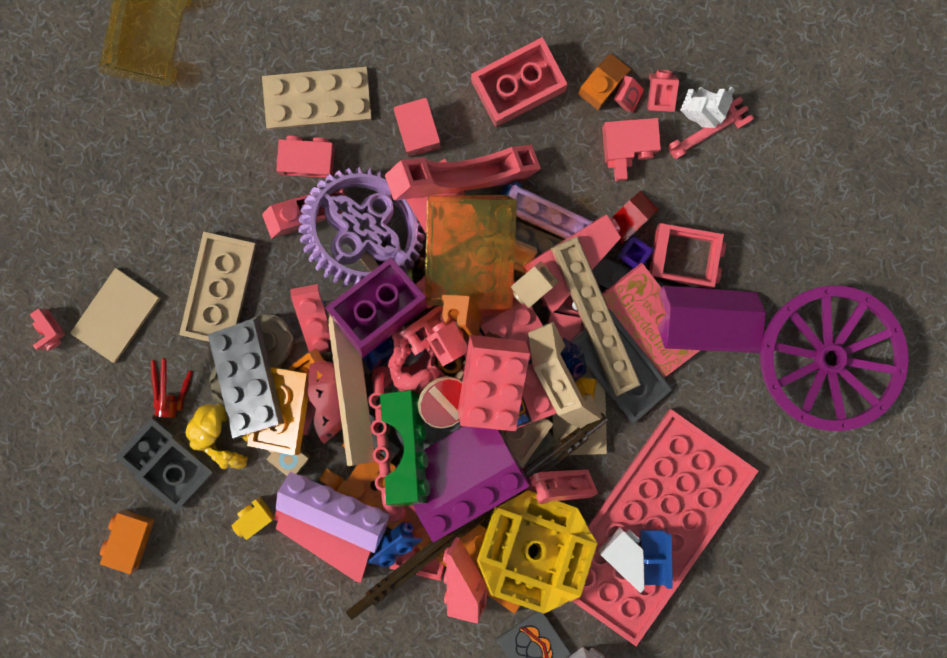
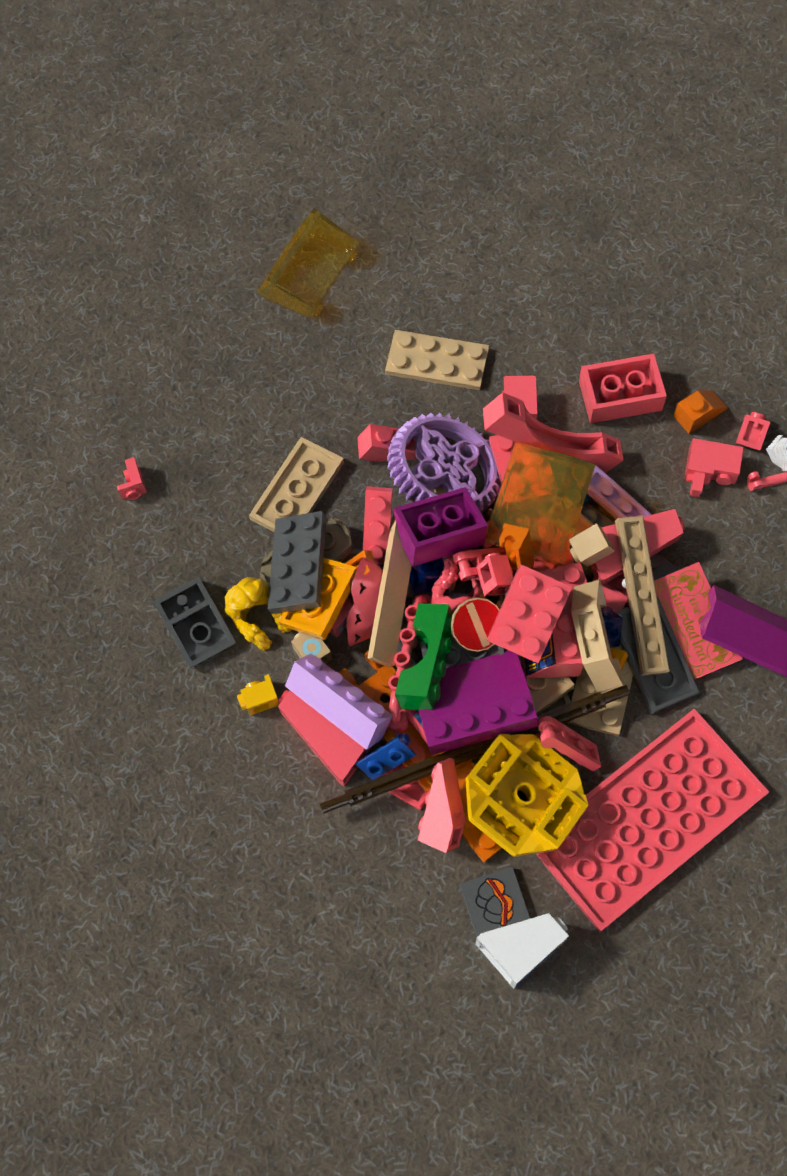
camera: 20 degrees right, 20 degrees down
(115, 315) = (197, 487): tan tile -> none
(126, 541) = (133, 682): orange brick -> none
(165, 404) = (214, 572): red plant -> none
(305, 157) = (410, 400): coral brick -> none
(625, 556) = (613, 831): white slope -> none
(629, 94) = (721, 425): coral tile -> none
(633, 215) = (699, 526): red slope -> none
(635, 252) = (692, 555): dark purple slope -> none
(657, 557) = (643, 843): blue panel -> none
(717, 250) = (750, 556): coral window -> none

